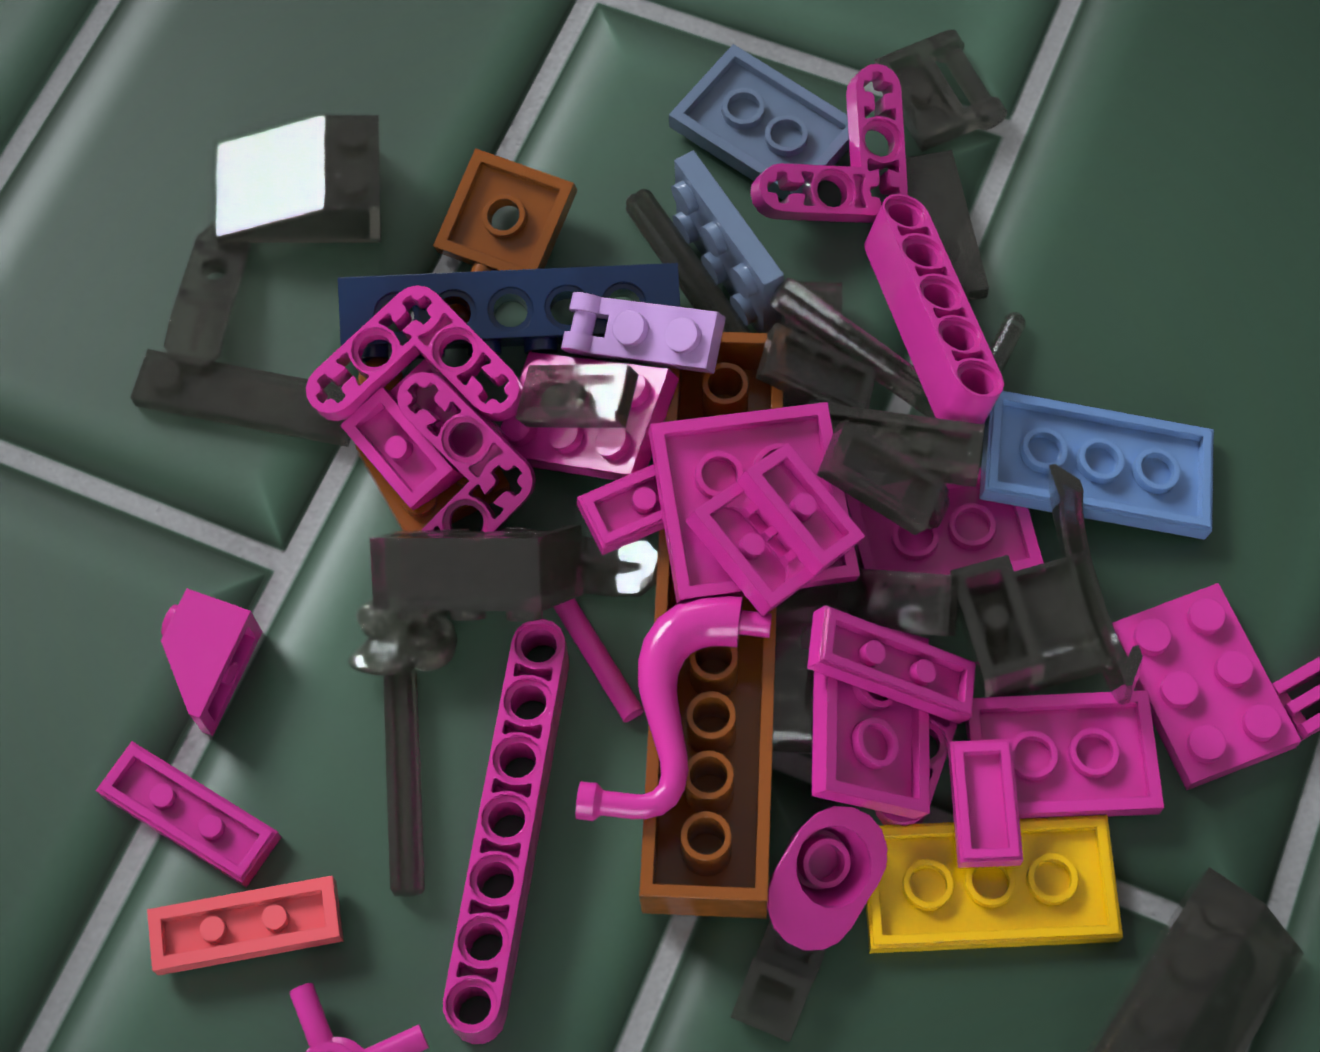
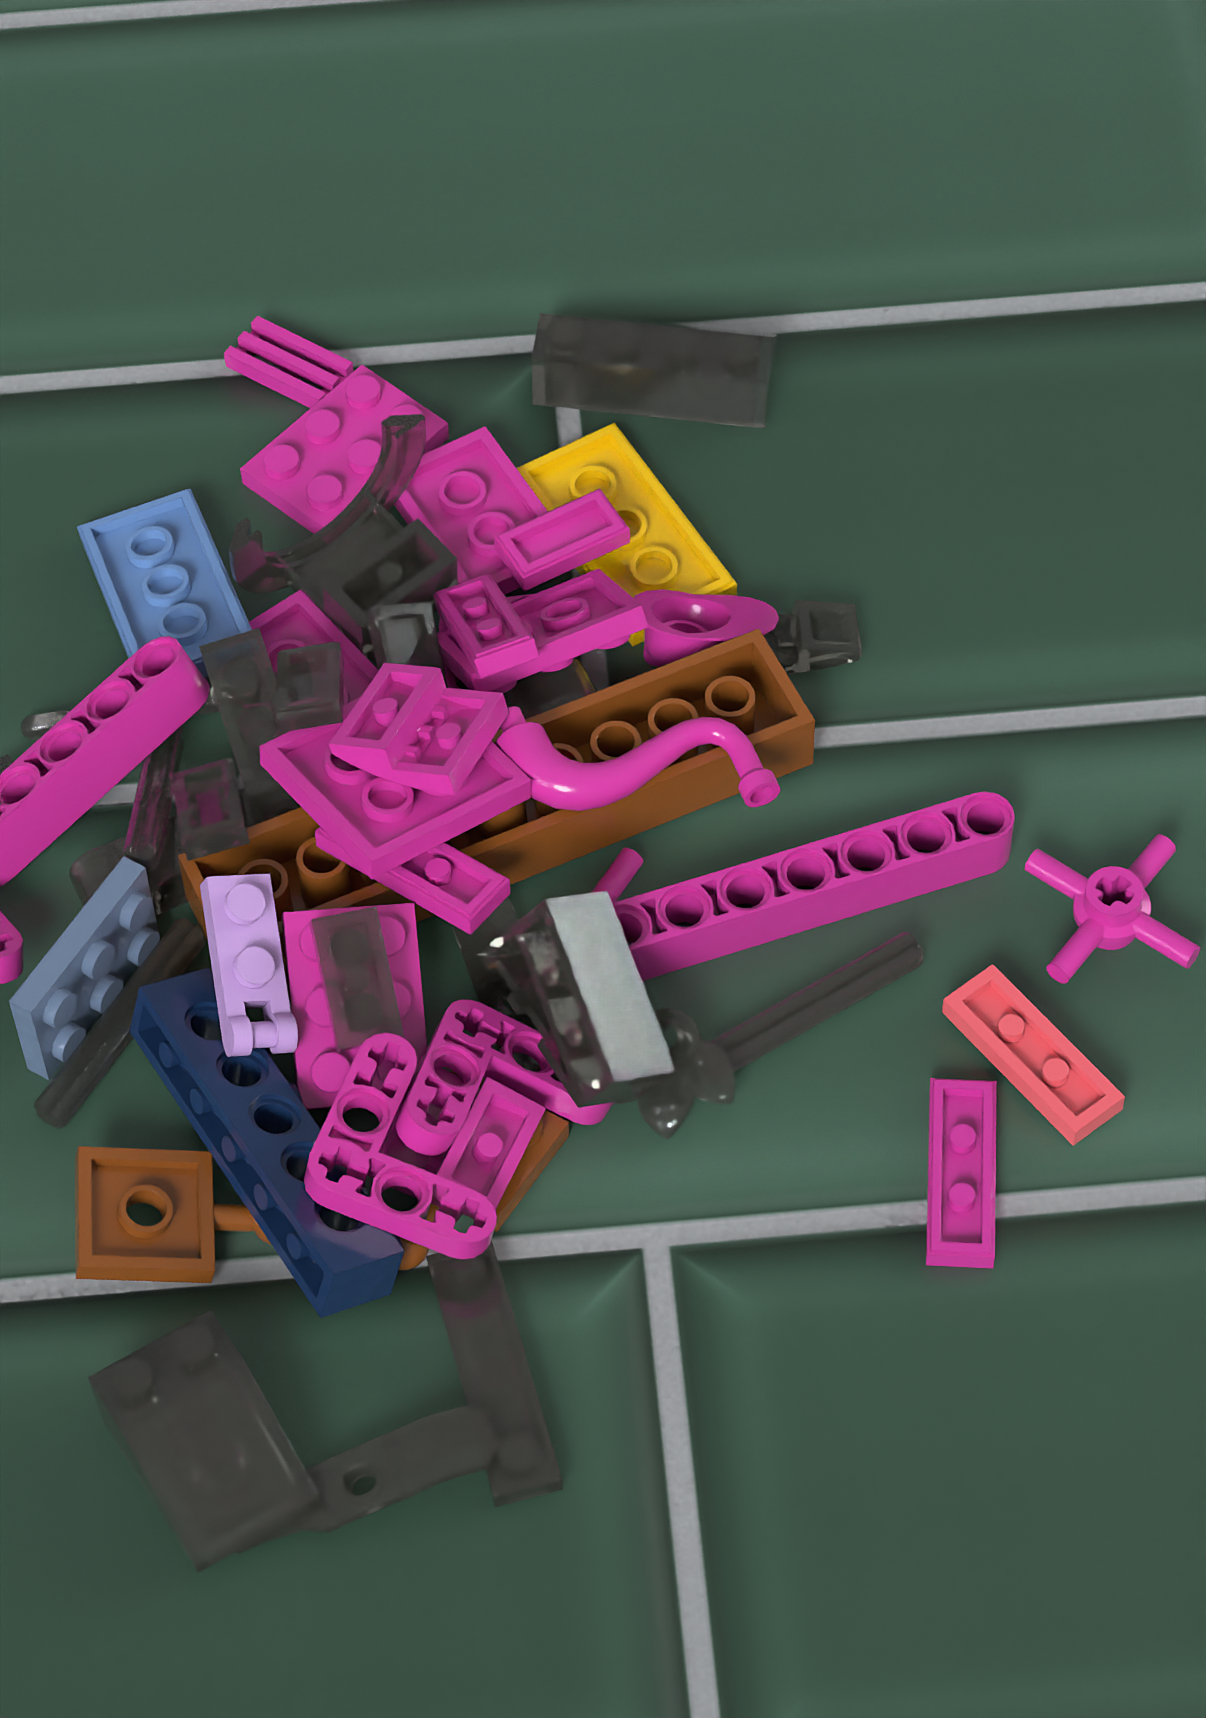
camera: 120 degrees left, 10 degrees down
(208, 652) = (802, 1228): dark pink slope -> none

